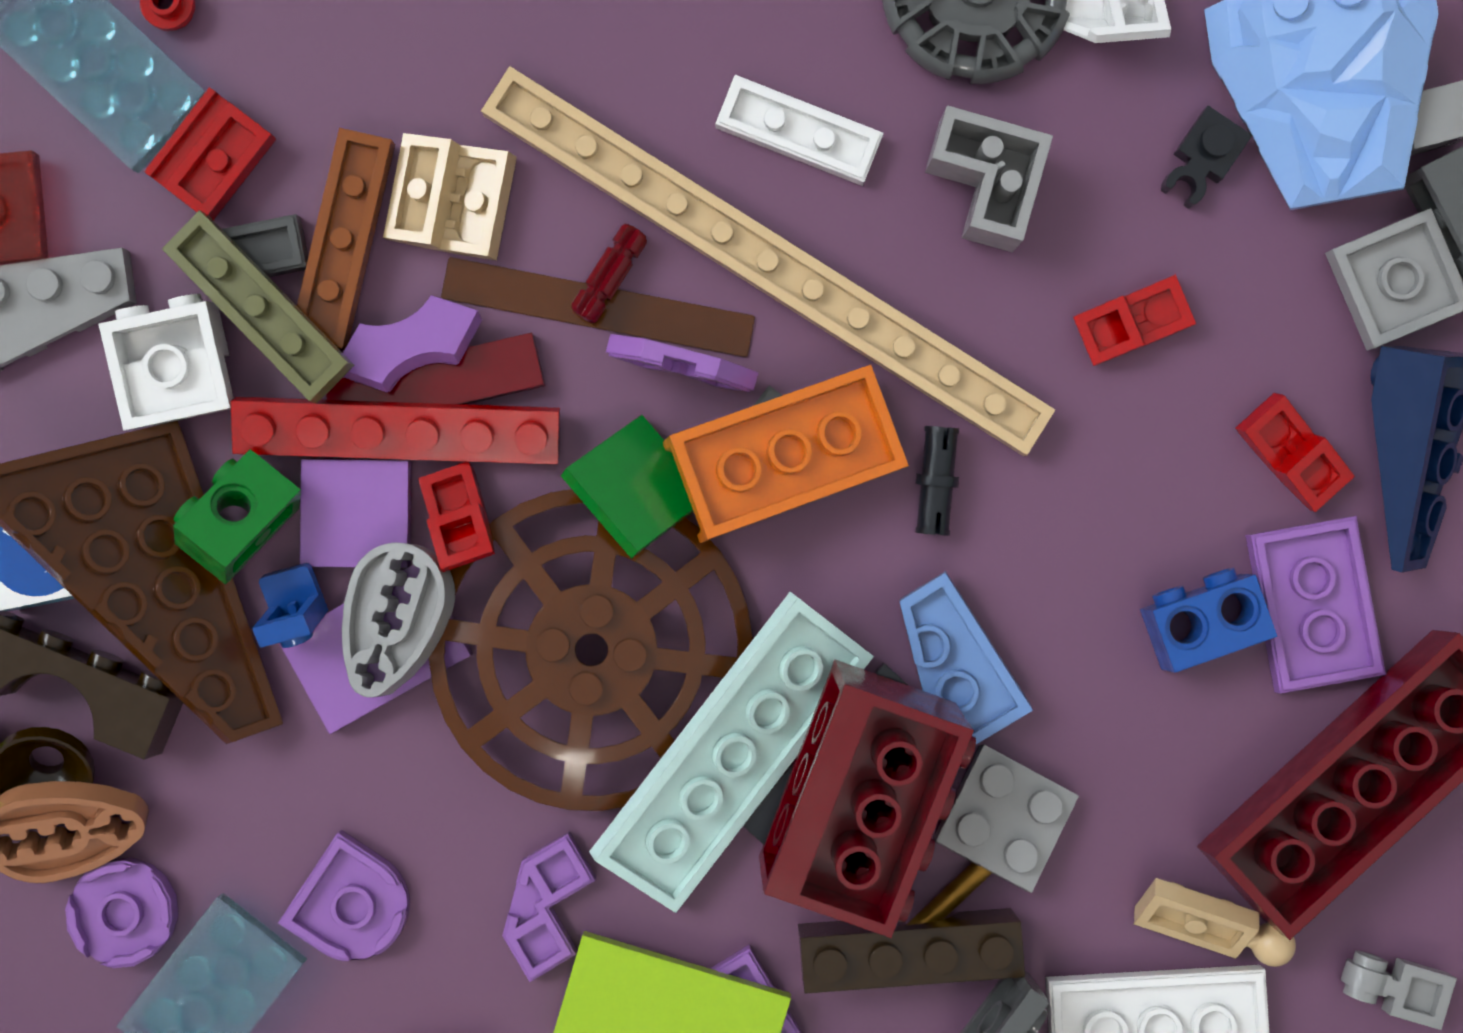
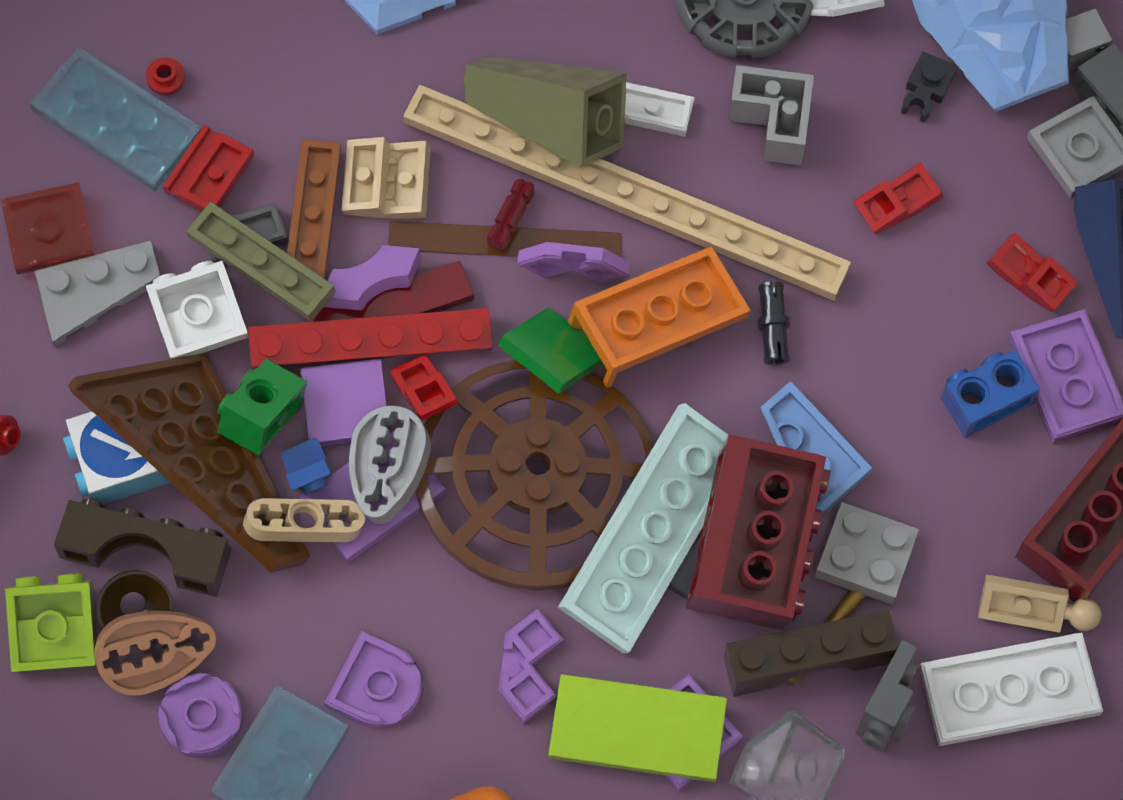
camera: 10 degrees left, 20 degrees down
(230, 673) = (292, 532): none -> tan beam
(689, 128) = (555, 105): none -> olive slope

